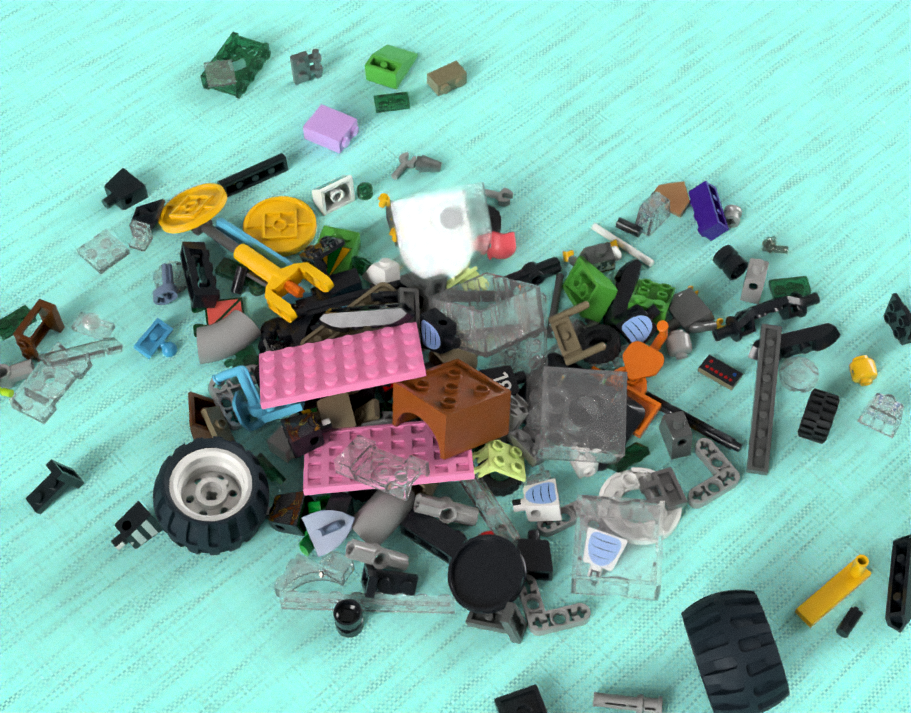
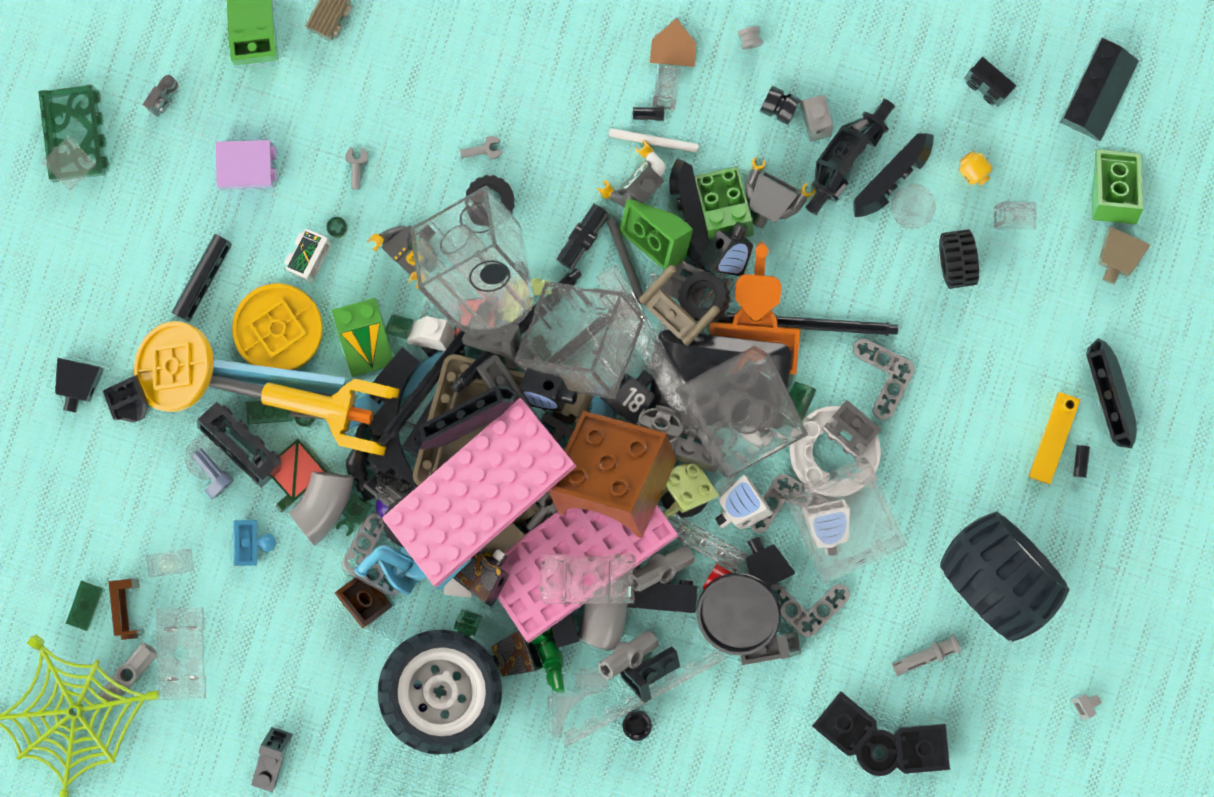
camera: 25 degrees left, 30 degrees up
(79, 353) = (185, 611): clear windscreen -> none
(103, 251) = (112, 470): clear plate -> none
(135, 527) = (385, 748): black torso -> none
(141, 235) = (140, 432): clear bracket -> none
(216, 423) = (383, 605): dark tan plate -> none
(239, 279) = (284, 424): black piece -> none
(314, 253) = (358, 353): black bracket -> none
(327, 529) = (568, 658): shield -> none
(391, 102) = (287, 84): clear green plate -> none
(427, 164) = (384, 152): flat silver cone -> none
(502, 245) = (532, 219): coral helmet -> none
(673, 429) = (830, 353): dark grey torso -> none
(678, 344) = (779, 241): light grey head -> none
(708, 211) = (723, 48): dark purple brick -> none
(720, 372) = (835, 249): black tile -> none
(764, 400) = (896, 264): dark grey plate -> none
(770, 246) = (808, 54): clear smoke plate -> none
(786, 286) = (855, 100): clear green plate -> none

